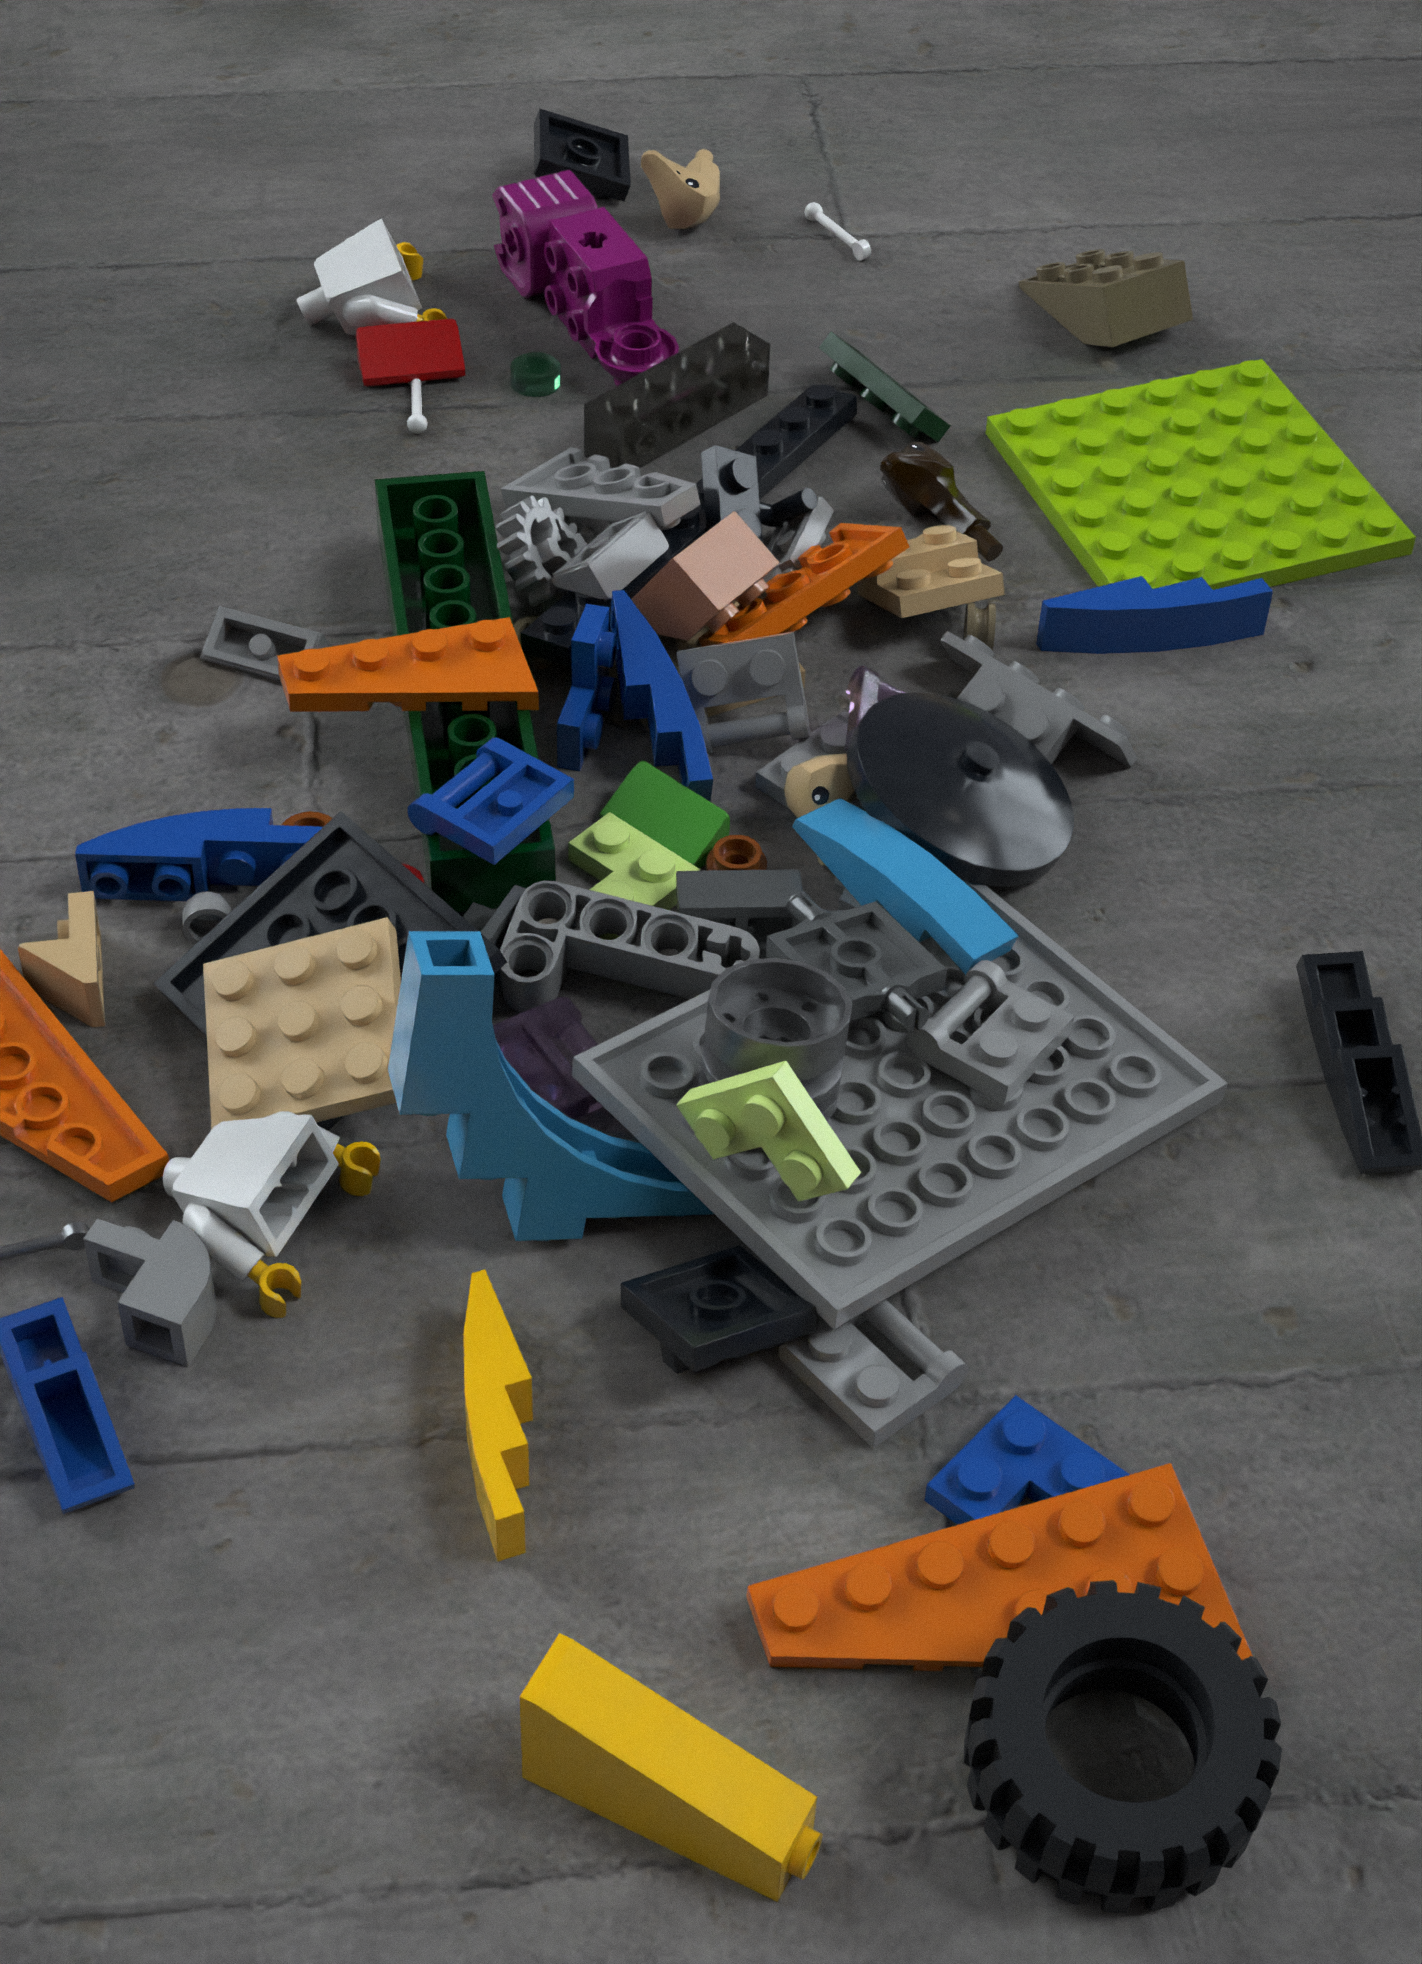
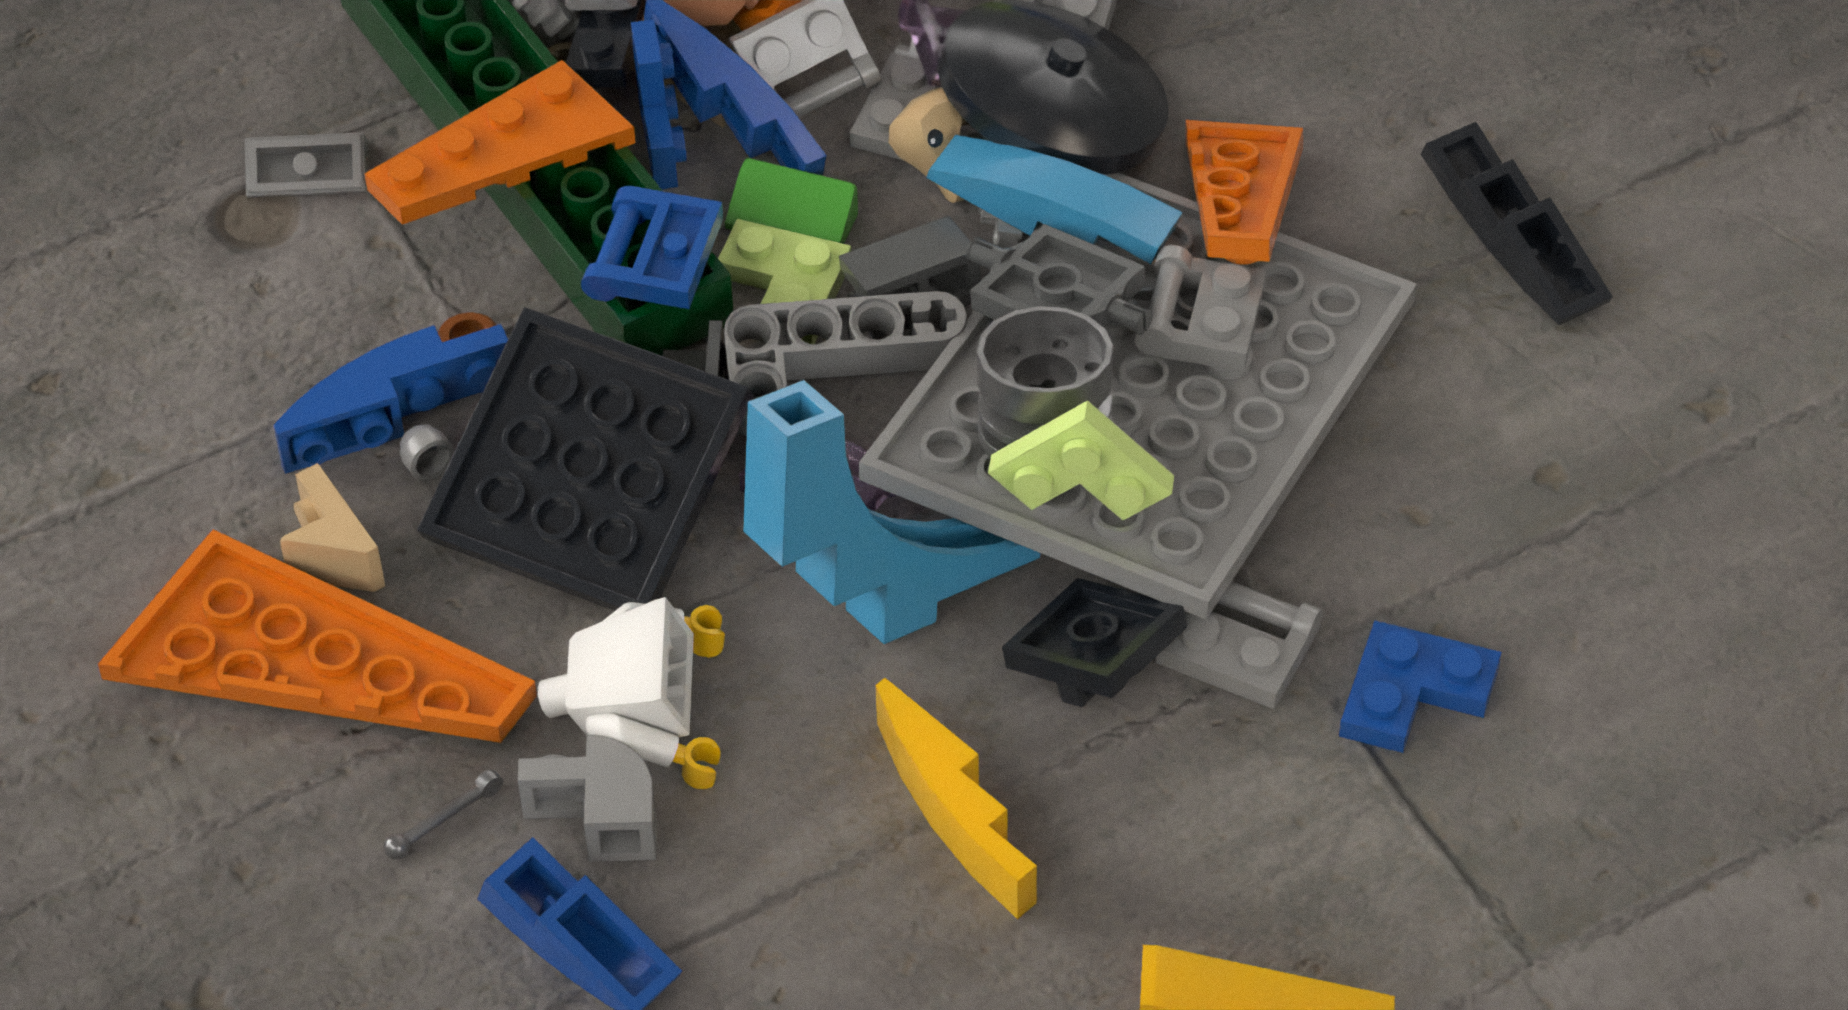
camera: 20 degrees left, 5 degrees up
(303, 1025) = (599, 521): tan plate -> none
(736, 853) = (876, 222): dark orange plate -> none
(959, 1587) = (1473, 770): orange wing -> none
(1097, 934) = (1242, 184): none -> orange wing
(1143, 1650) = (1621, 788): black tyre -> none

